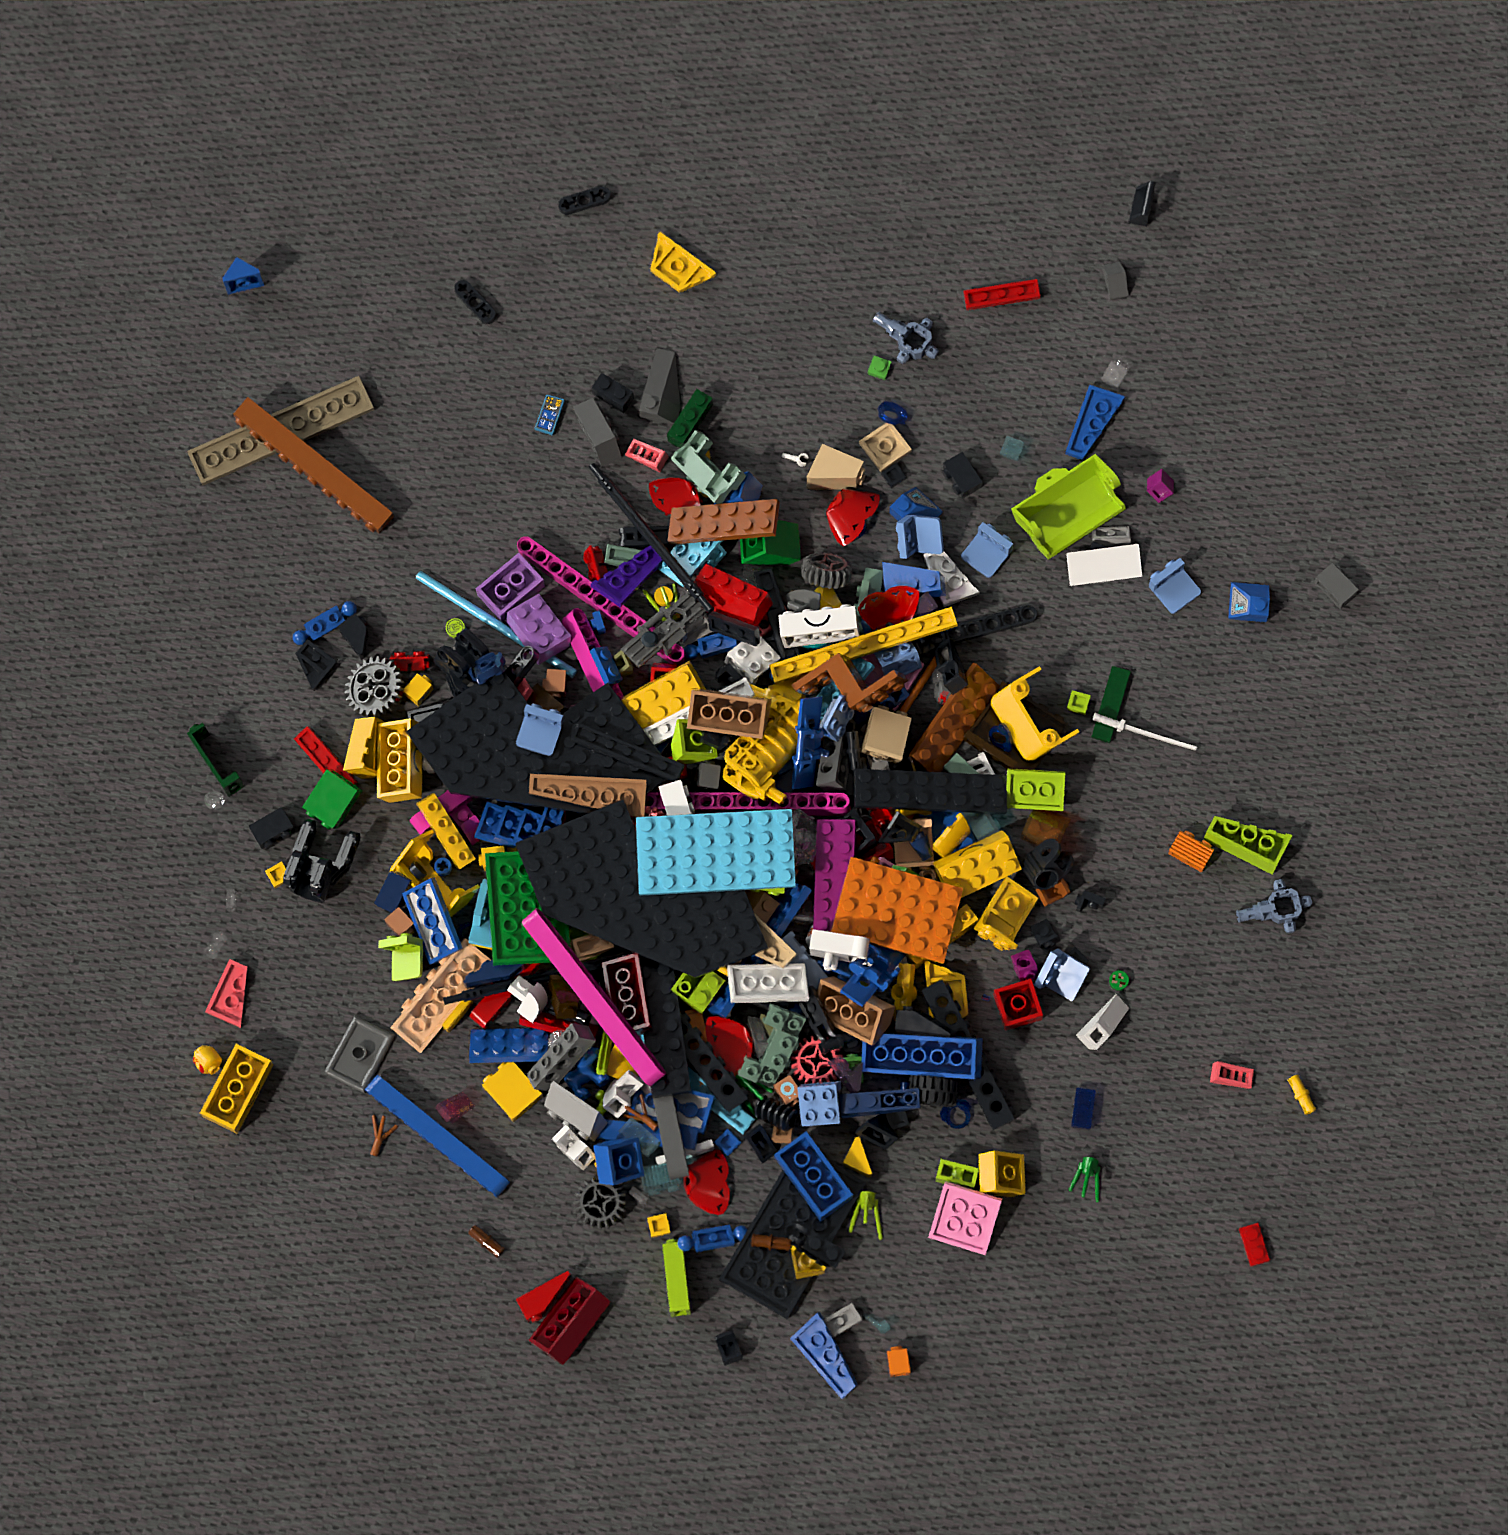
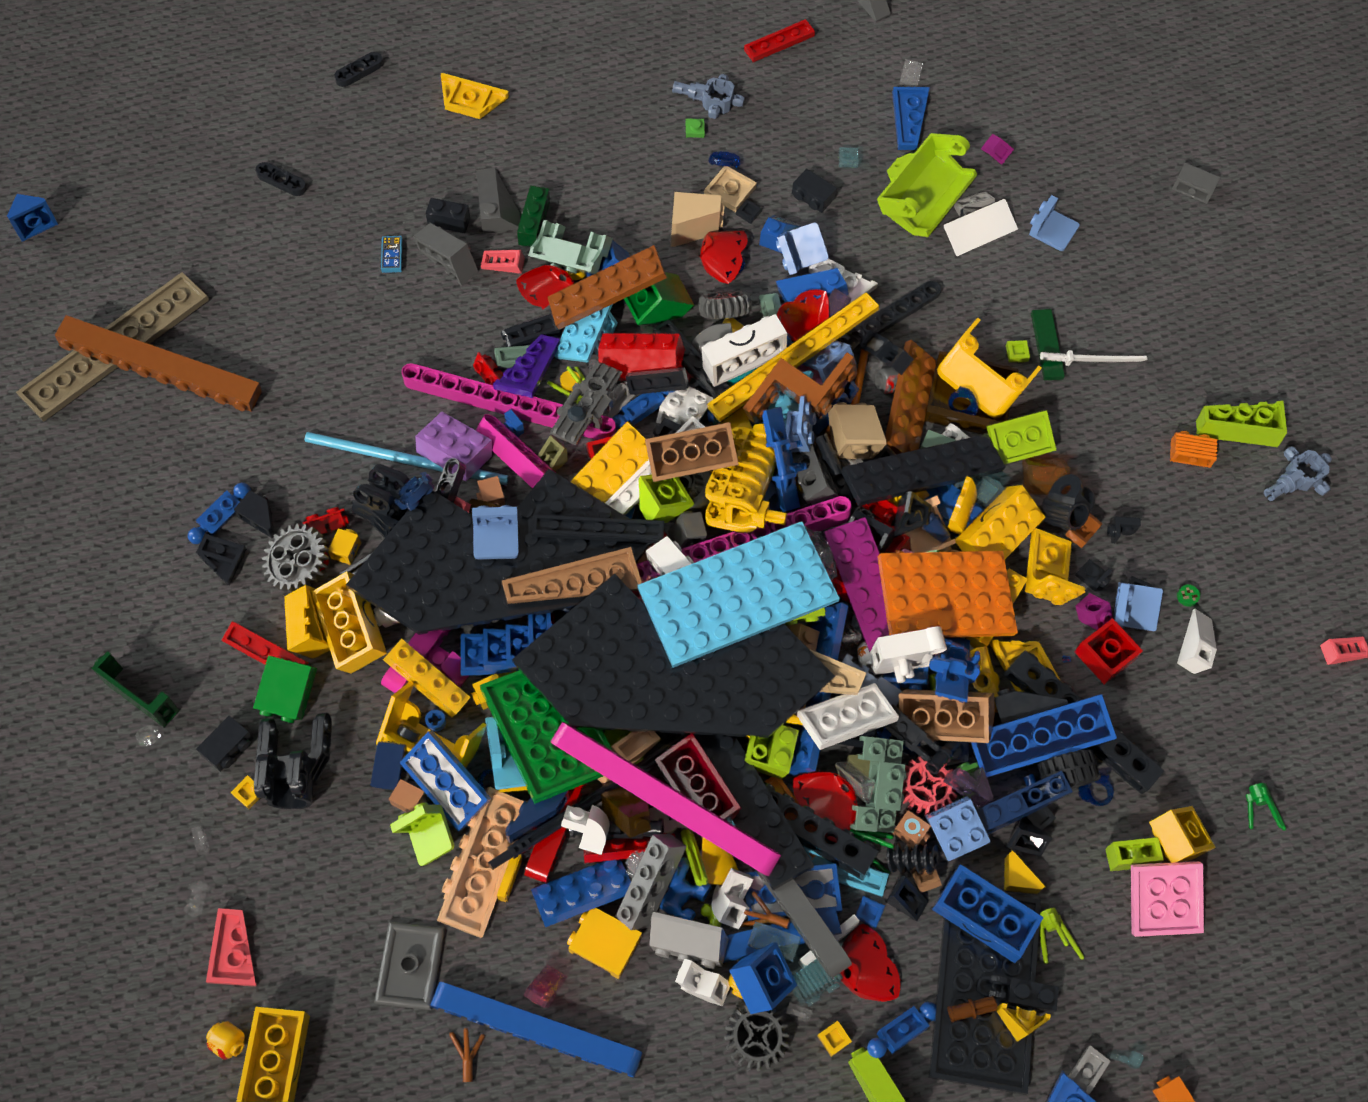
camera: 30 degrees left, 10 degrees down
(454, 626) = (361, 474): lime tile -> none
(510, 586) = (407, 415): medium lavender brick -> none
(606, 665) = (537, 456): blue plate -> none
(651, 538) = (540, 327): black axle -> none
(716, 740) = (686, 485): black bracket -> none
(796, 458) = (657, 218): white hand -> none
(987, 550) = (868, 244): medium blue bracket -> none
(1083, 1108) = (1222, 736): clear blue plate -> none
(1249, 602) = (1128, 220): blue slope -> none

